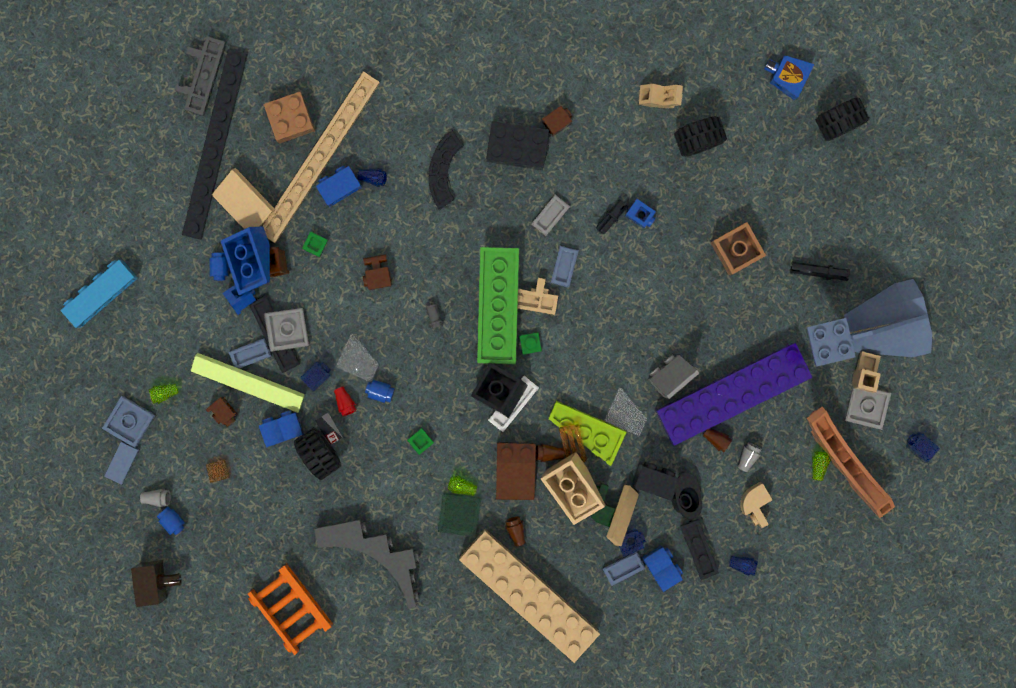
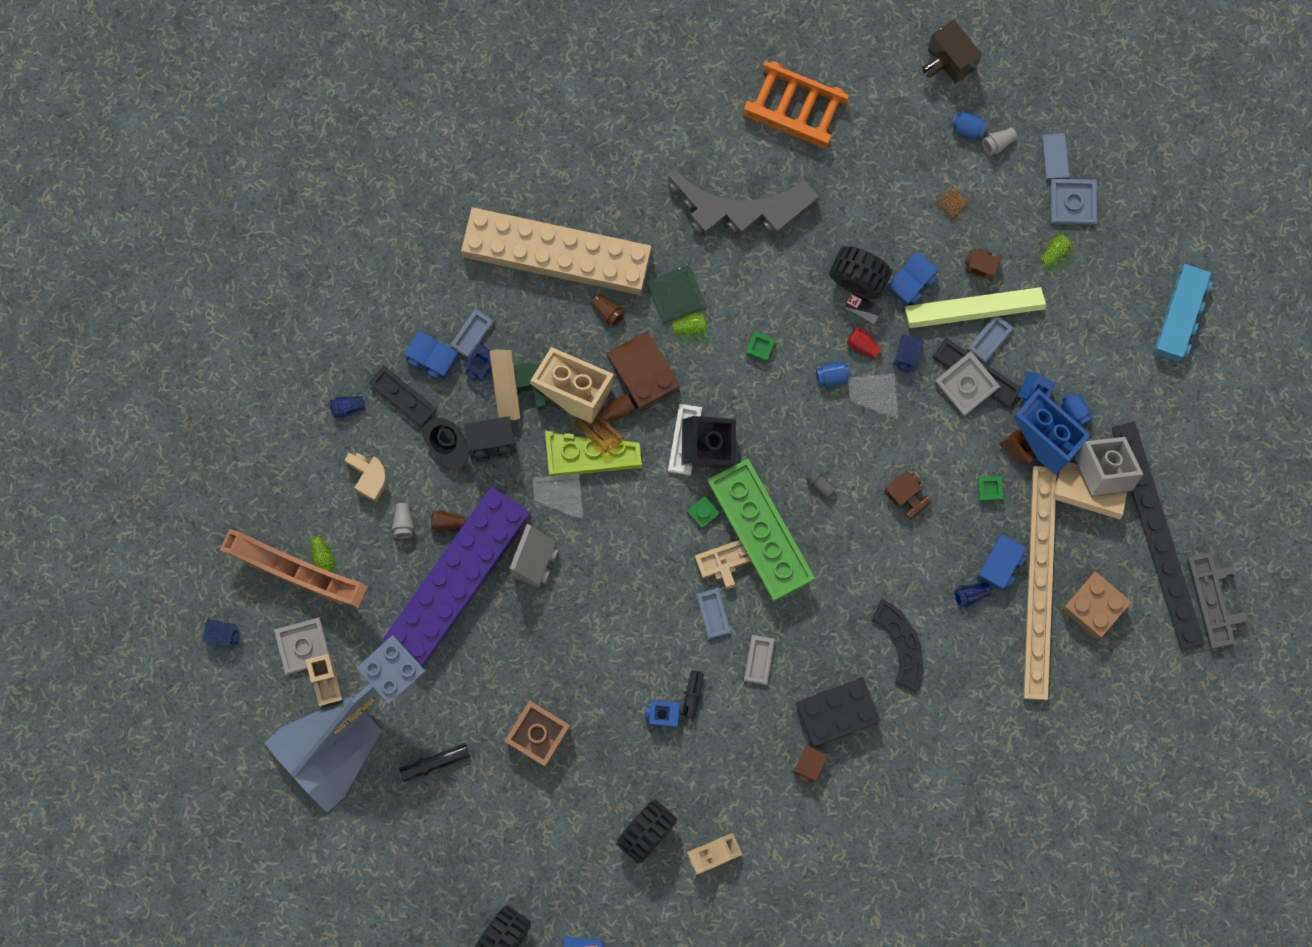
camera: 155 degrees right, 10 degrees down
(221, 210) = (1108, 466): none -> light grey brick

